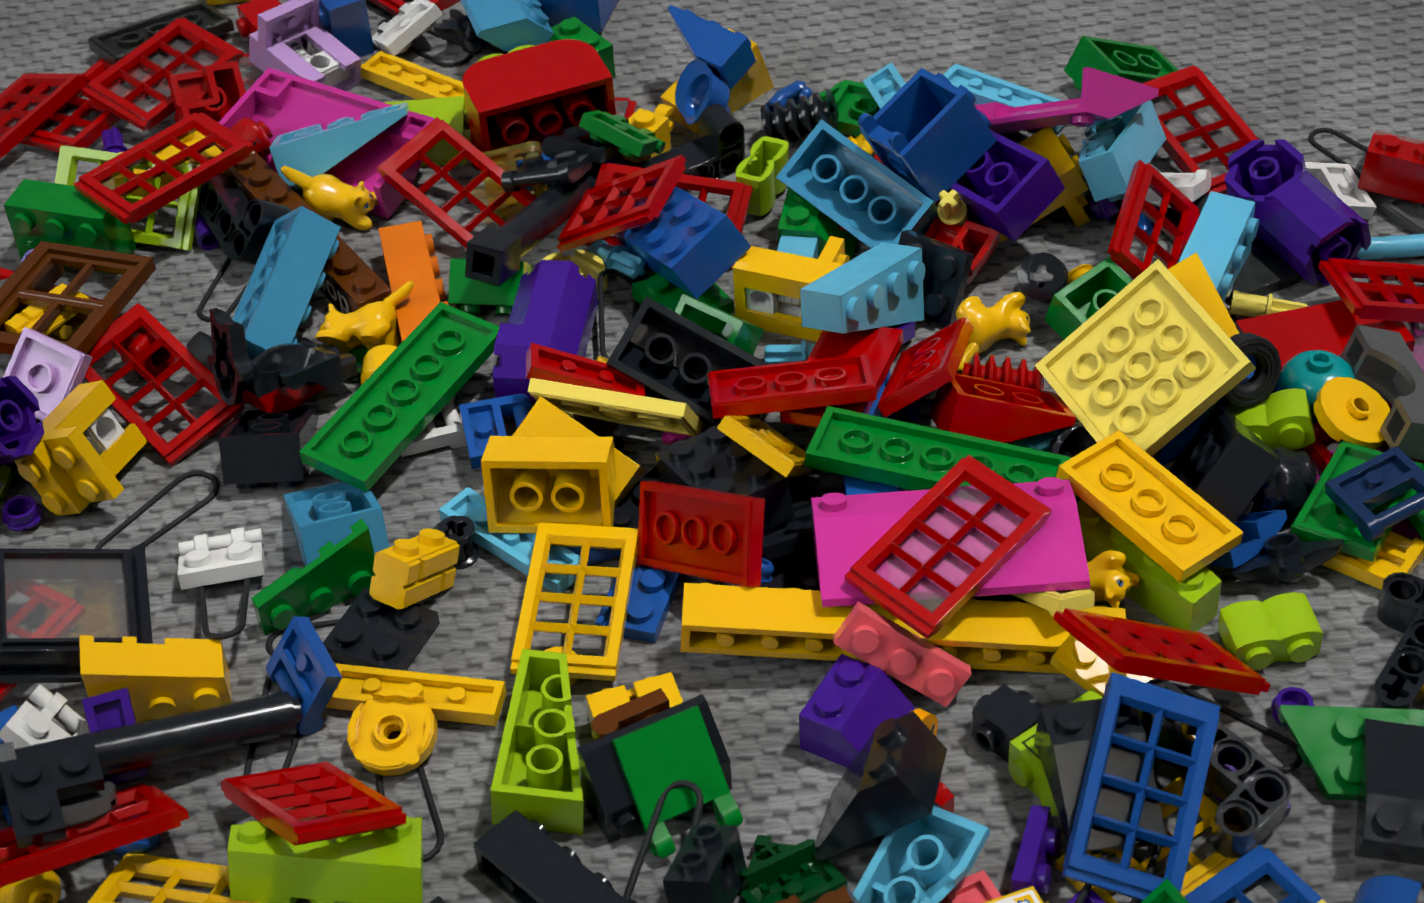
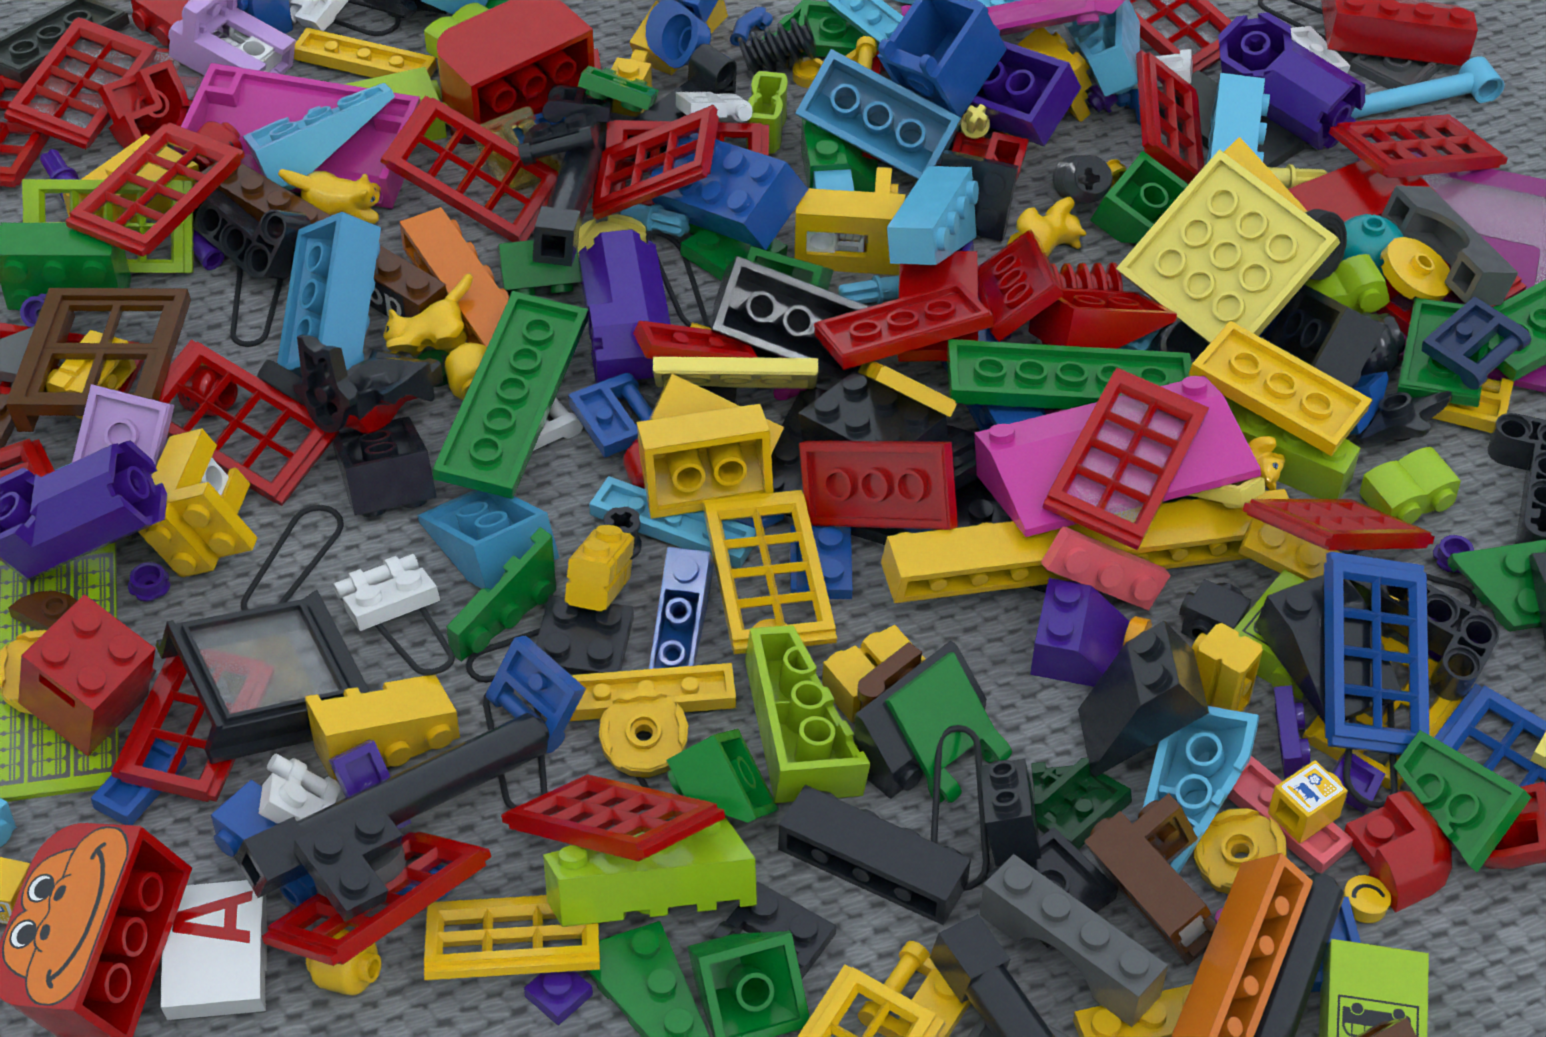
camera: 20 degrees left, 5 degrees up
(438, 786) = (724, 774): none -> green slope
(482, 620) = (681, 607): none -> slope
(705, 160) = (725, 103): none -> white plate
(984, 779) = (1227, 667): none -> yellow brick

